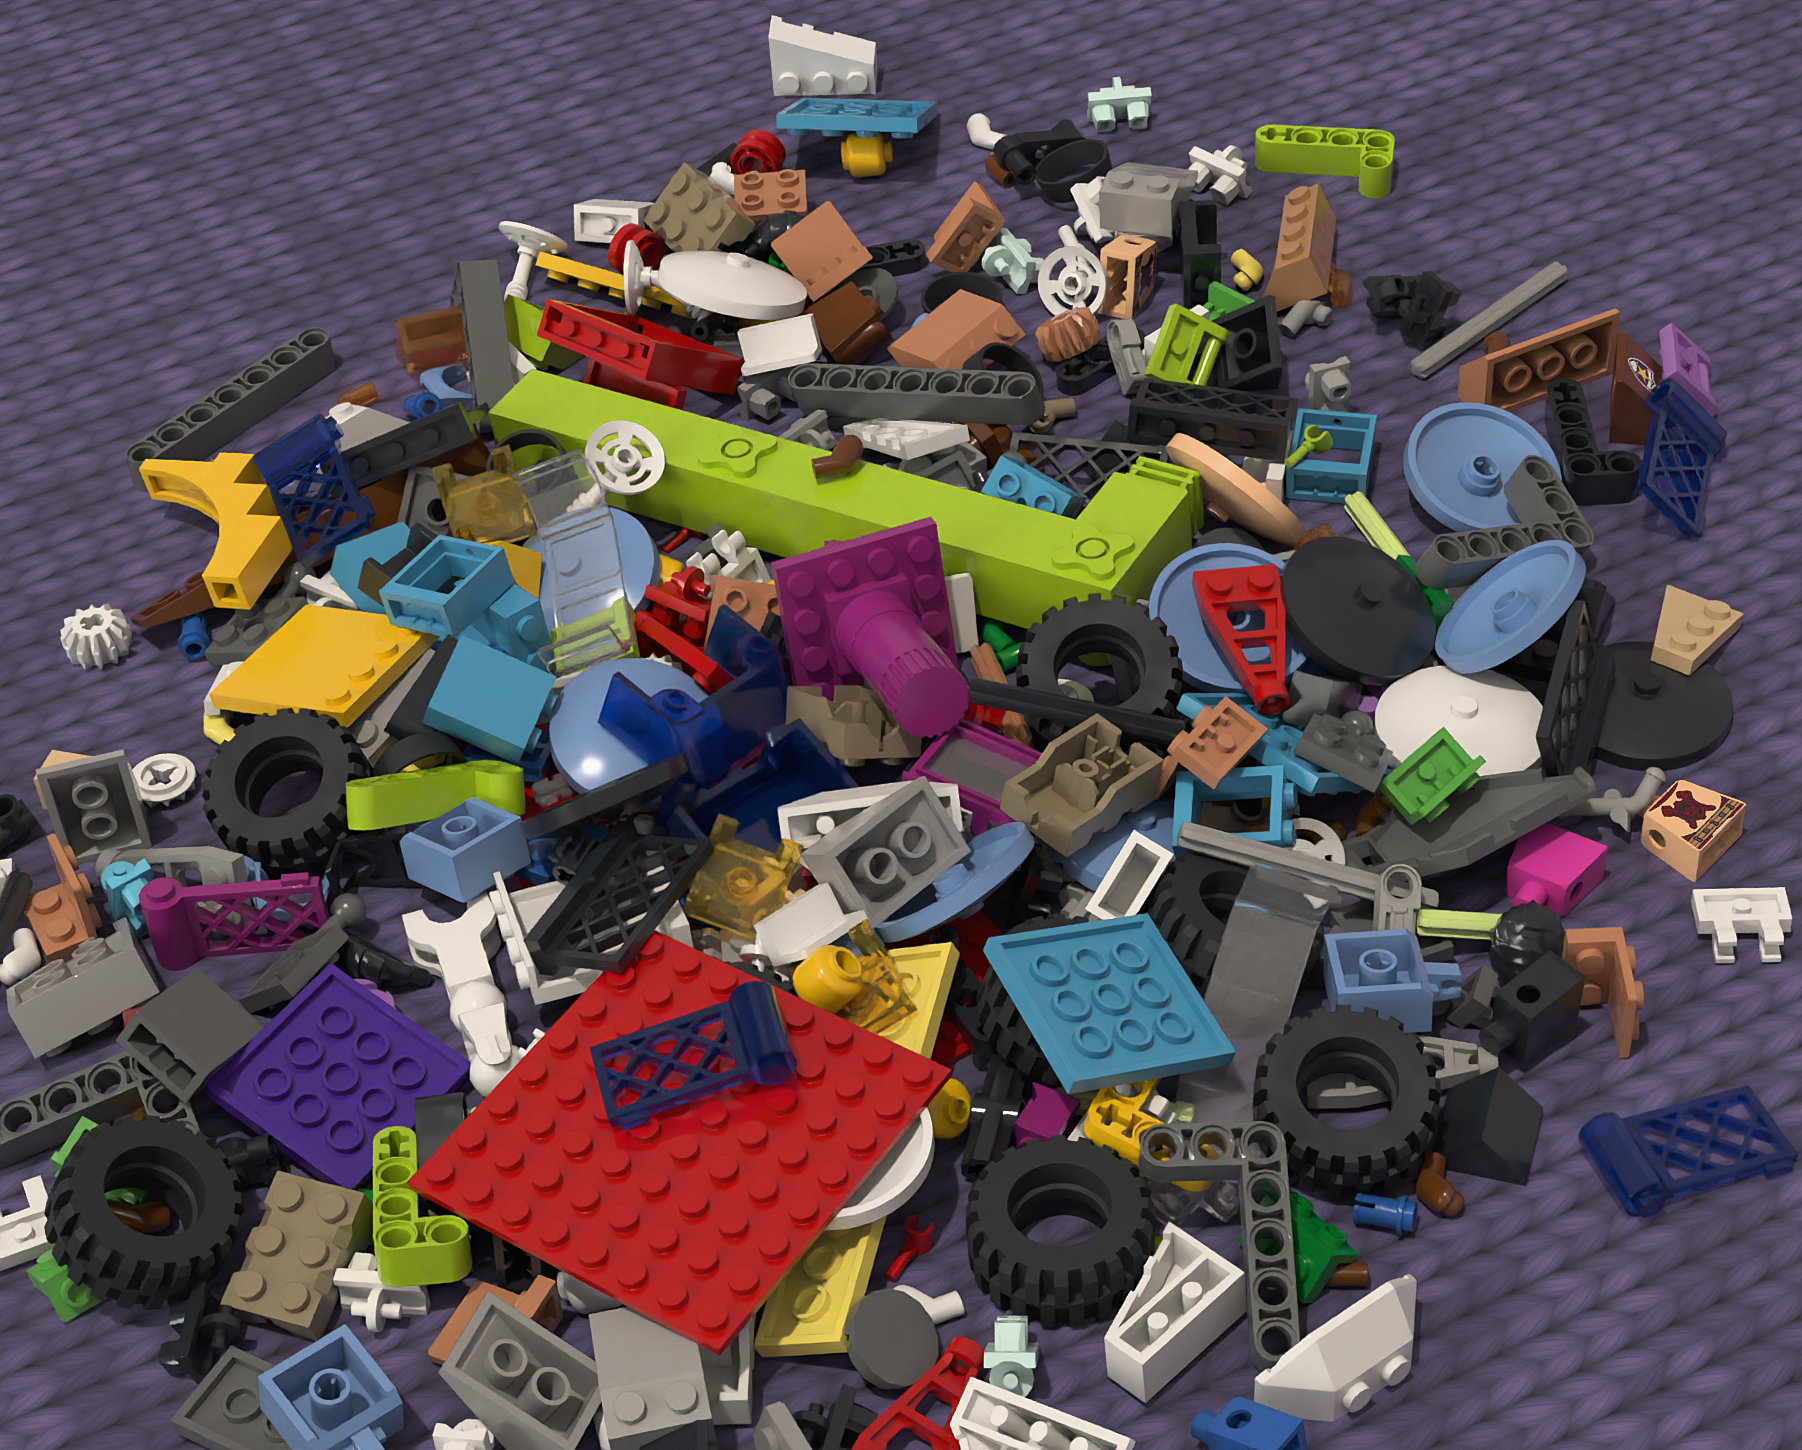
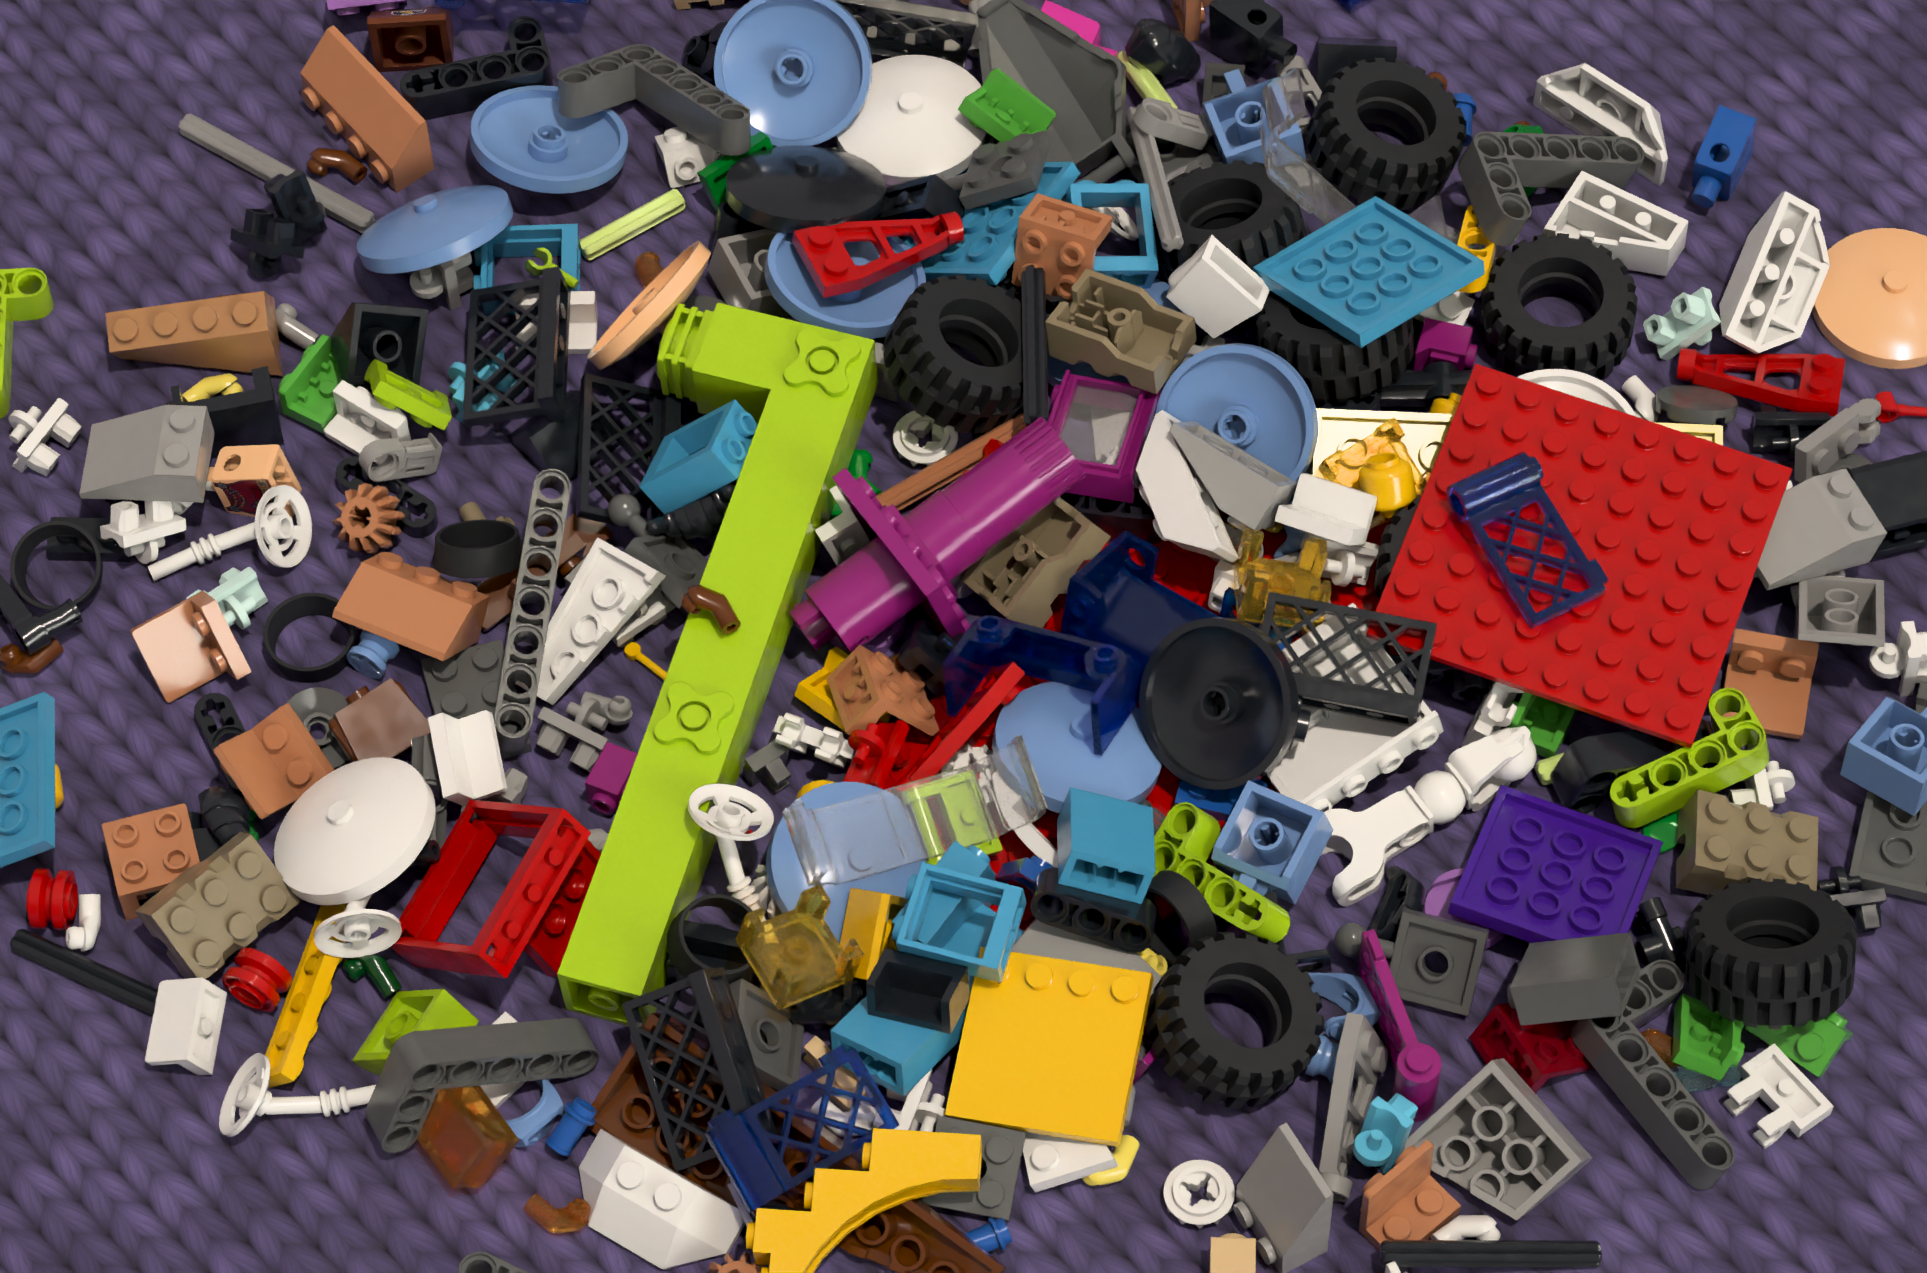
camera: 105 degrees left, 15 degrees up
(1370, 376) = (435, 229): none -> medium blue dish

